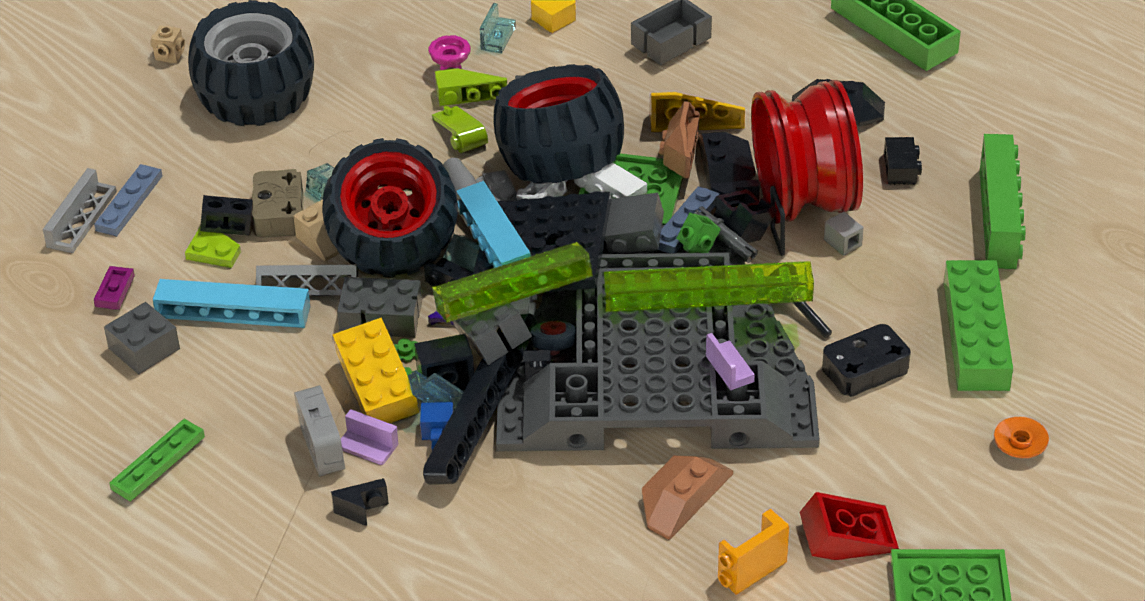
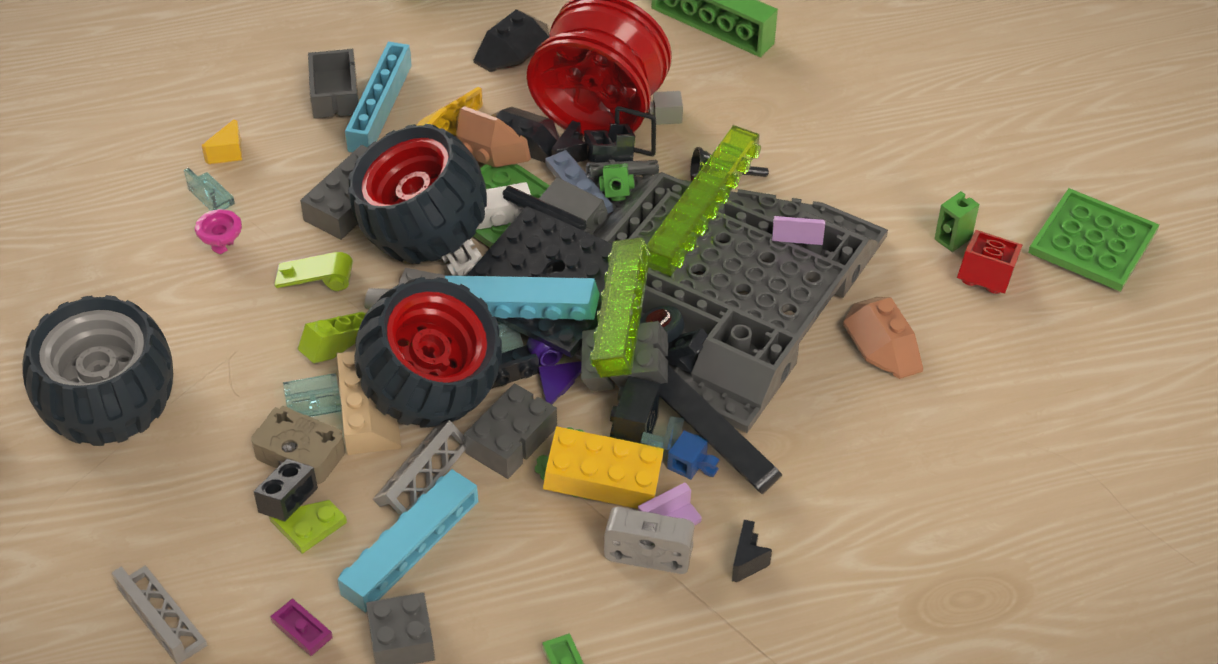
camera: 60 degrees left, 5 degrees up
(128, 200) = (175, 564): sand blue plate -> none
(466, 86) = (263, 245): lime slope -> none
(614, 203) = (523, 199): none -> black axle
(679, 62) = (379, 96): none -> medium azure brick
(756, 557) = (991, 307): light orange panel -> none
(866, 359) = (818, 163): black axle -> none
(867, 476) = (957, 218): none -> bright green brick
(977, 326) = (829, 87): bright green brick -> none
(1021, 437) = (961, 124): orange dish -> none

